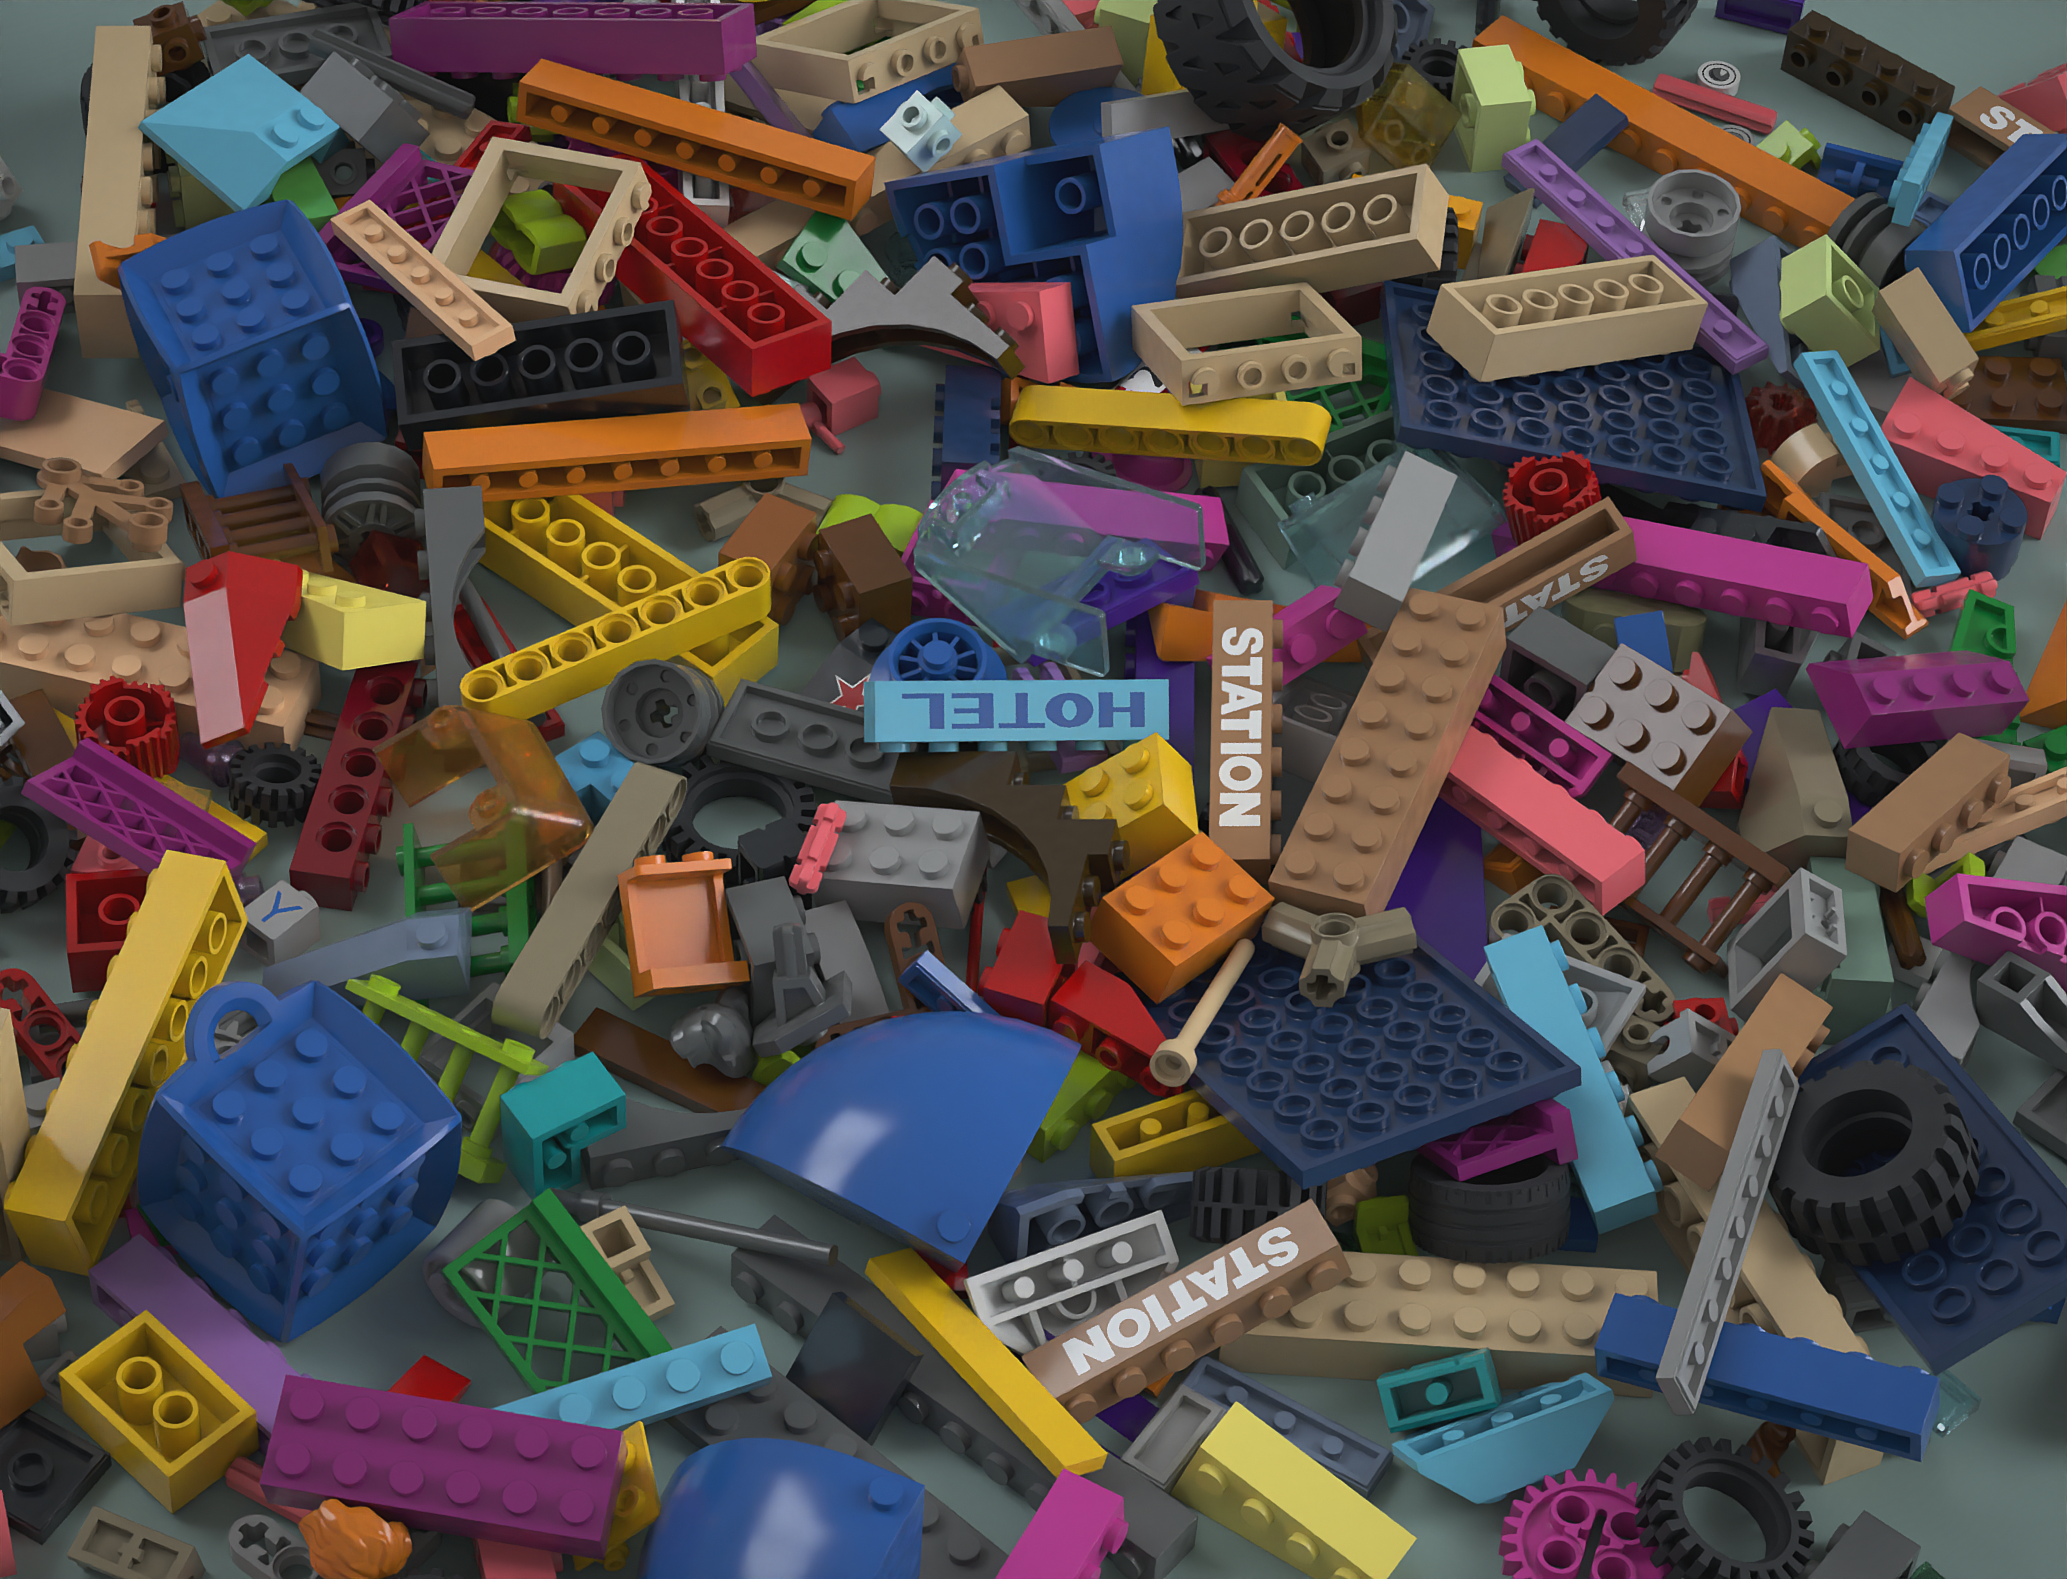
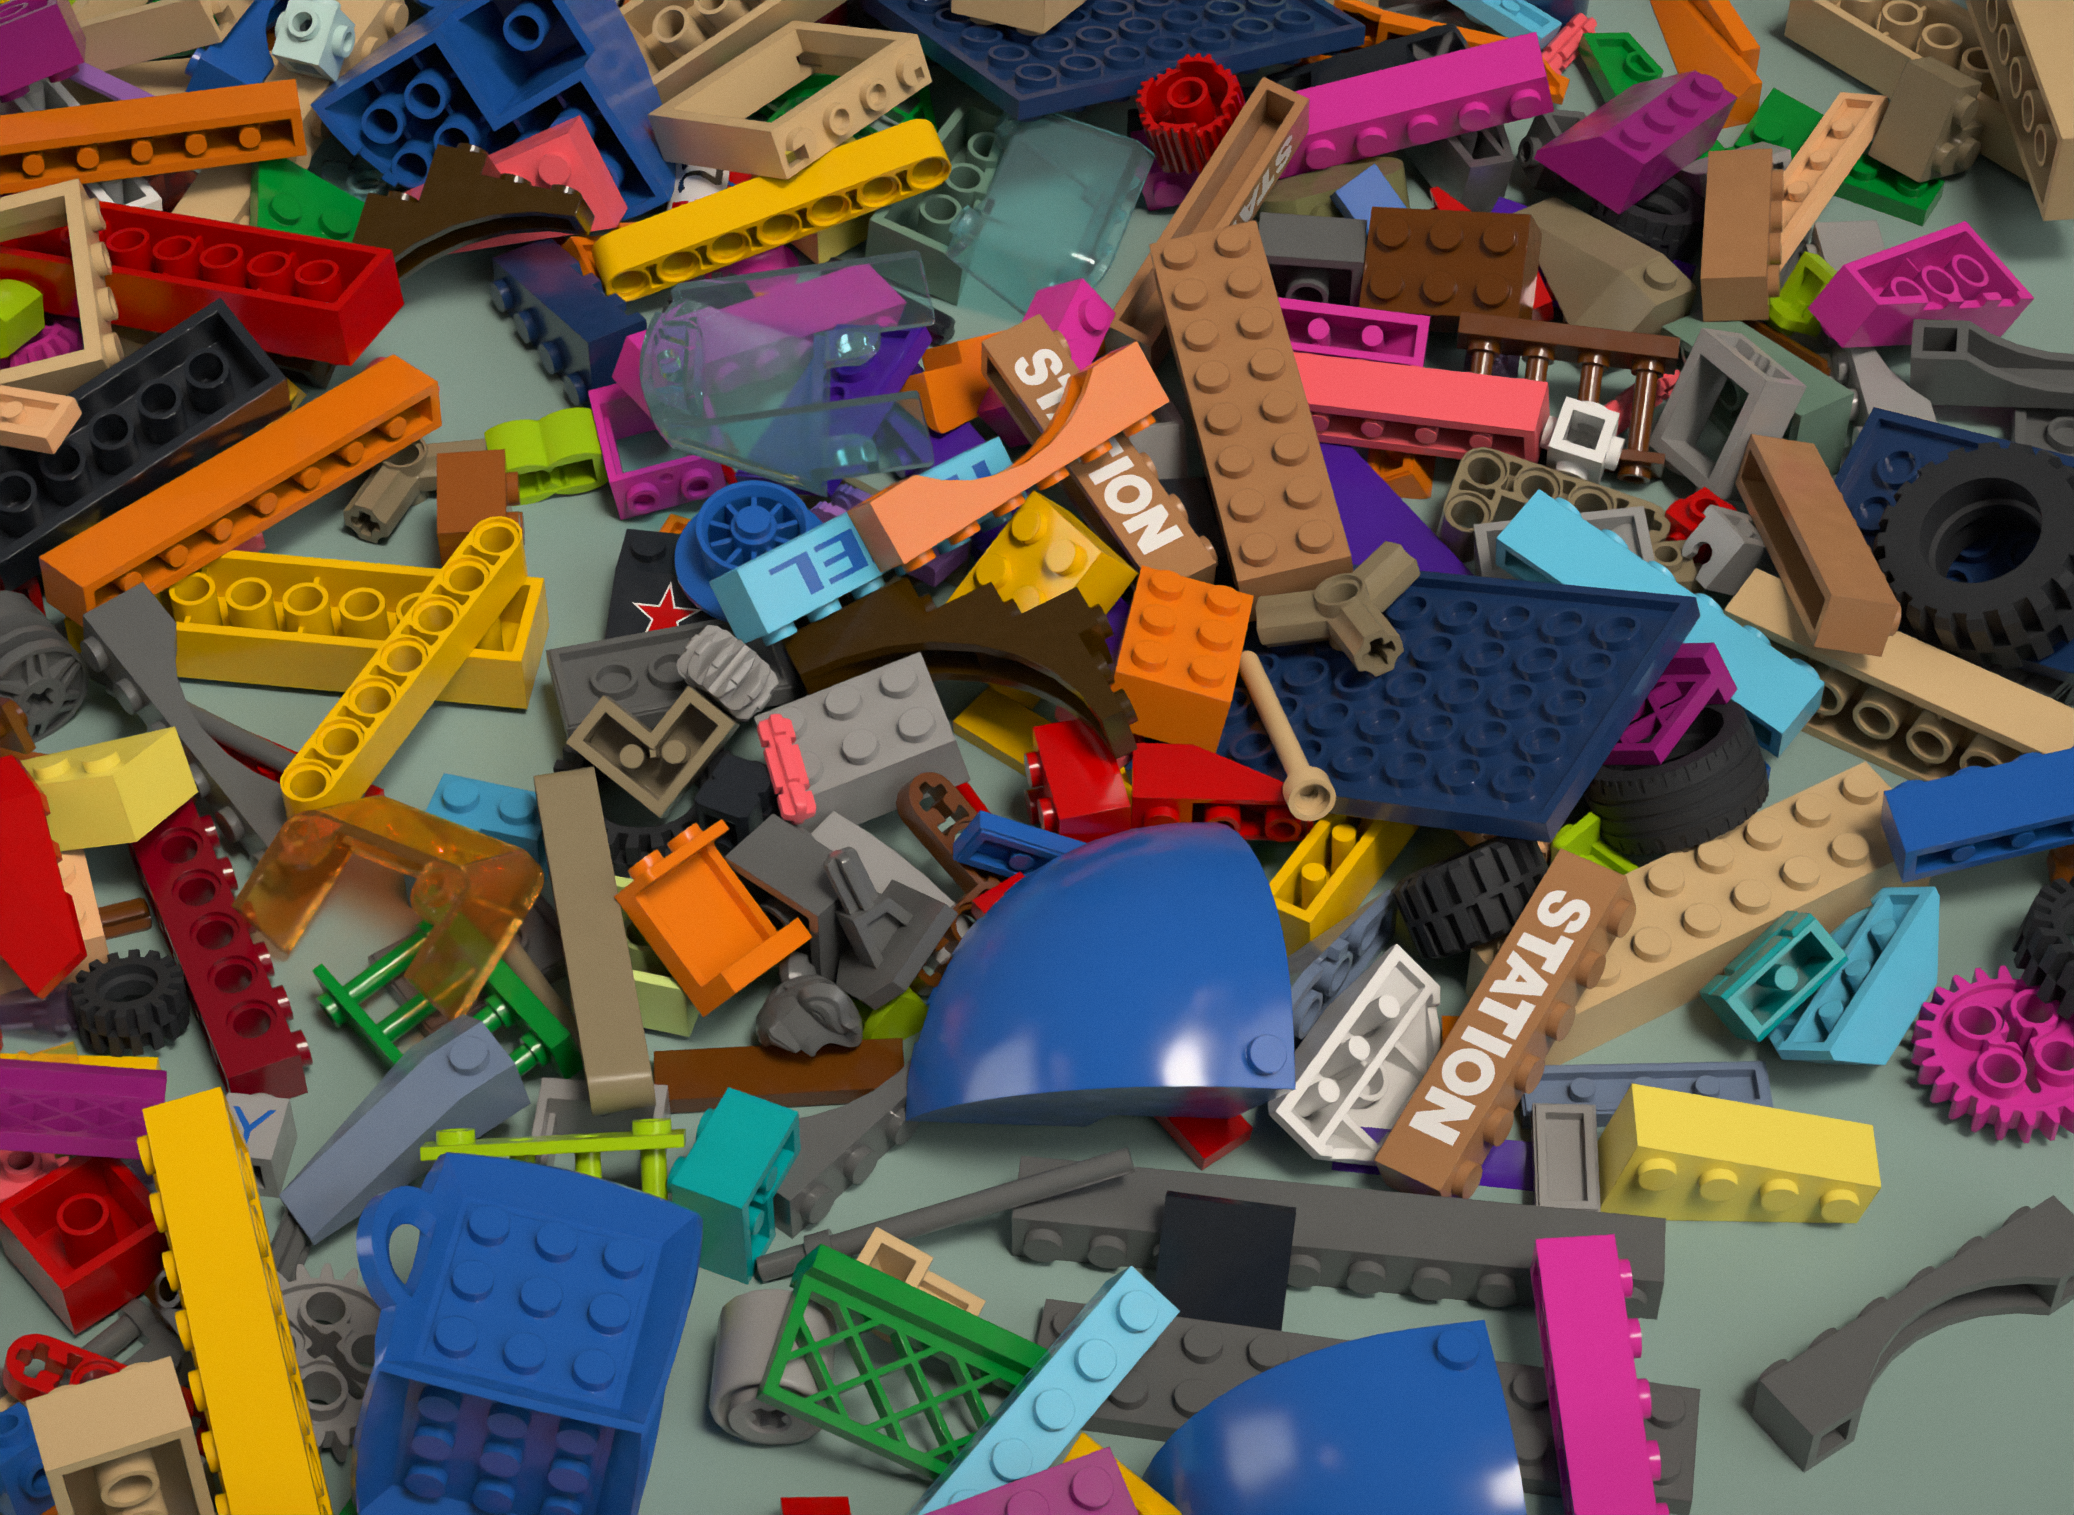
camera: 30 degrees left, 0 degrees up
(389, 564) = (75, 717): clear red brick -> none
(642, 697) = (499, 685): dark grey wheel -> none
(749, 794) = (659, 762): none -> dark tan brick
(834, 757) = (727, 673): none -> light grey gear
(845, 395) = (412, 335): coral brick -> none
(861, 577) = (585, 499): reddish brown brick -> none
(985, 1363) = (1354, 1184): yellow tile -> none
(1254, 690) = (921, 511): none -> orange arch
(1394, 541) = (1094, 211): light grey brick -> none
(1647, 912) = (1582, 440): none -> white brick
(1727, 1233) = (1954, 680): light grey tile -> none

